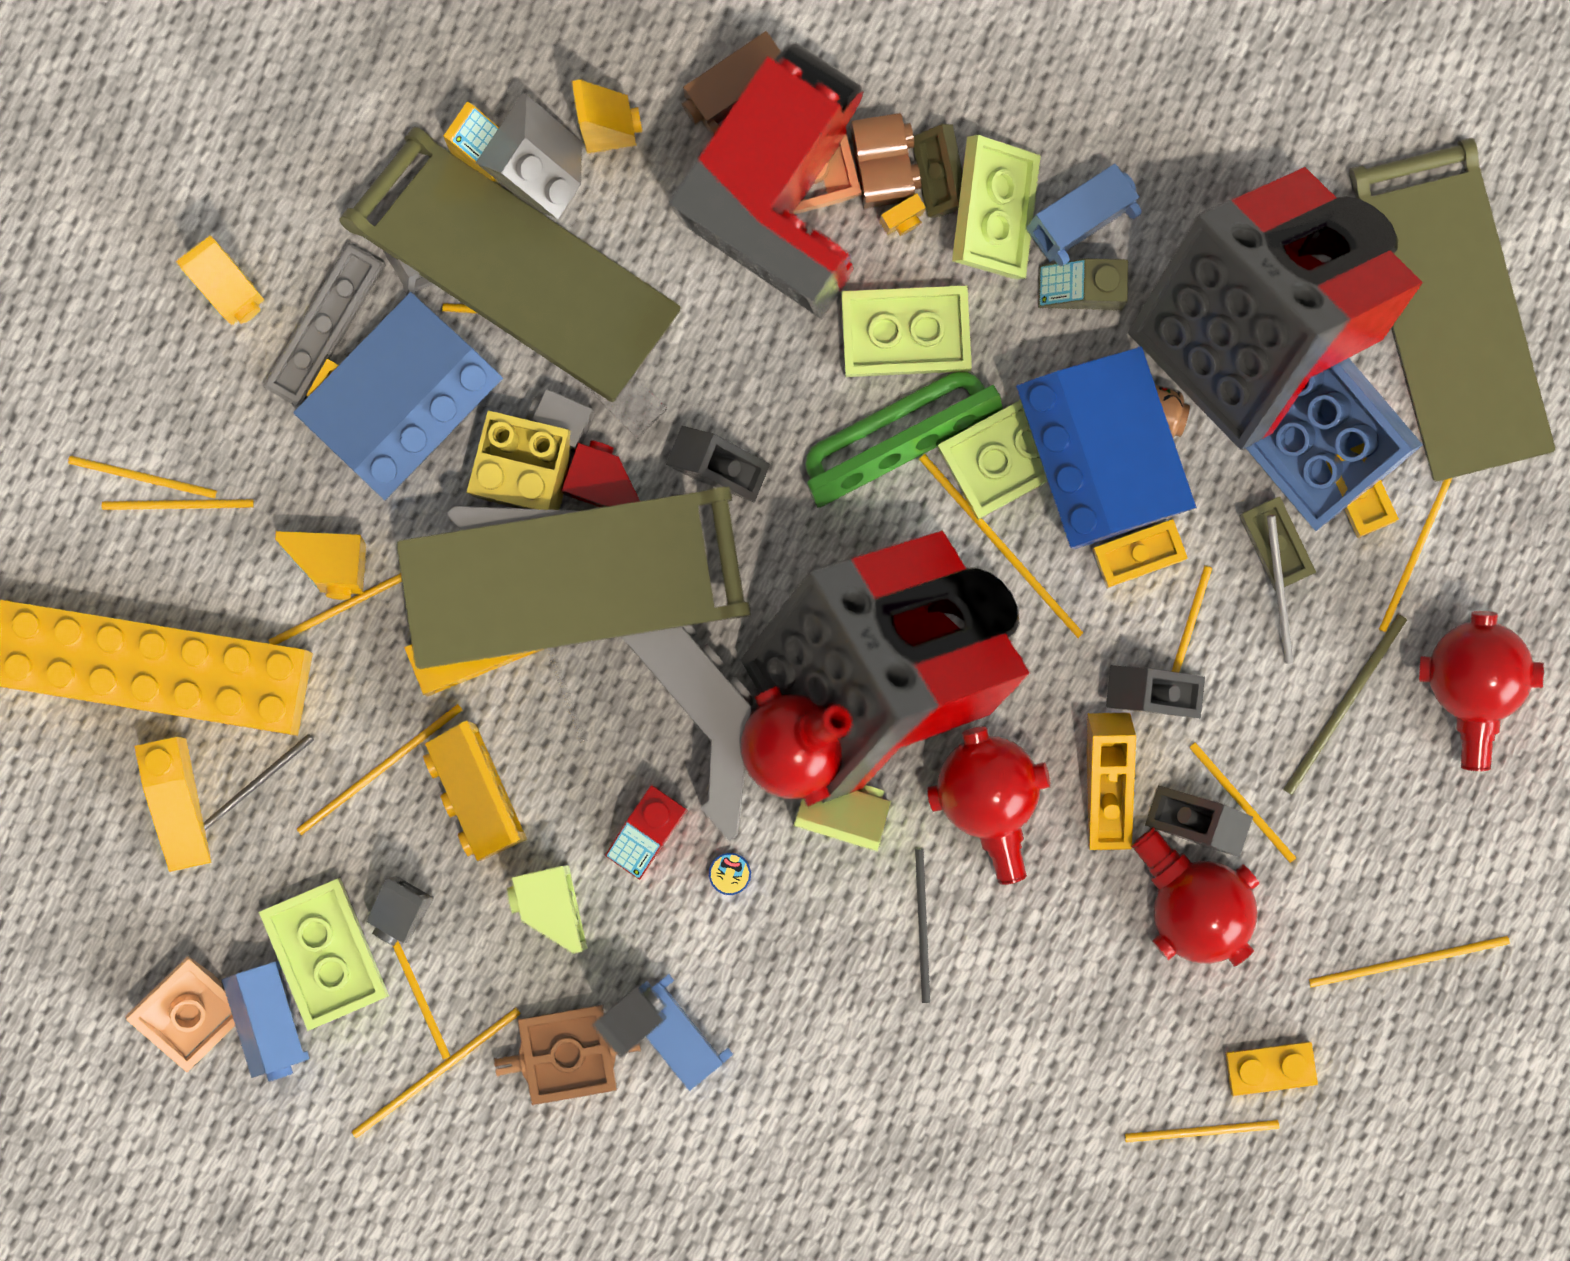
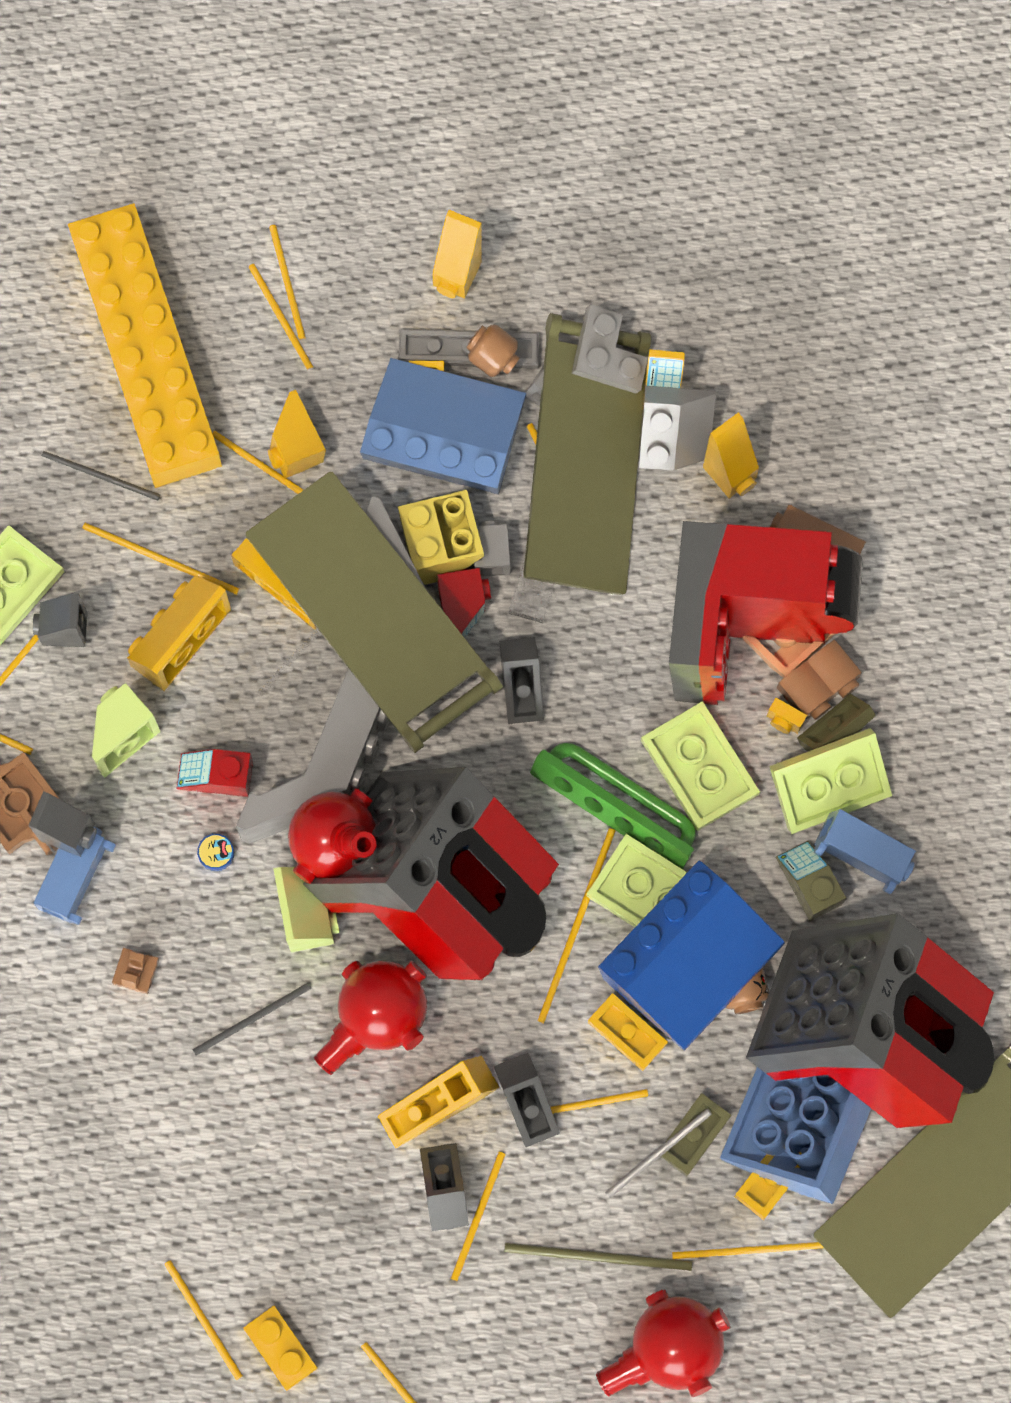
camera: 60 degrees right, 10 degrees down
(173, 802) = (60, 423): yellow slope -> none
(346, 300) = (493, 350): none -> medium nougat head
(414, 193) = (598, 356): none -> light grey plate
(810, 1019) = (135, 971): none -> medium nougat tile
(1201, 906) = (377, 1223): red piece -> none

